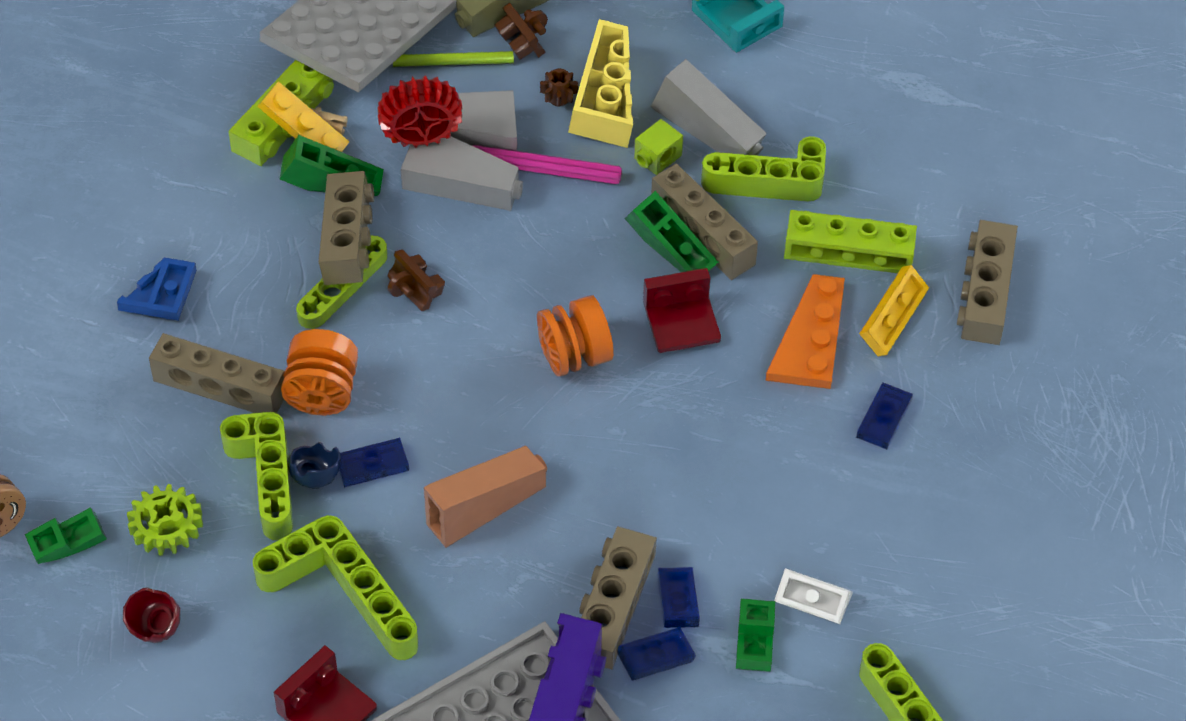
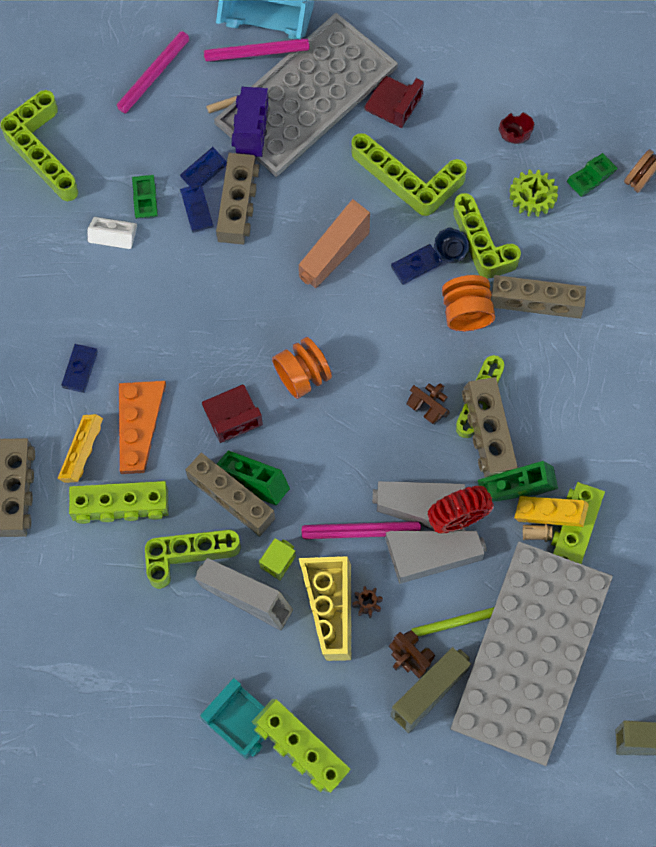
camera: 170 degrees right, 15 degrees up
(162, 290) = (602, 359): blue wing -> none

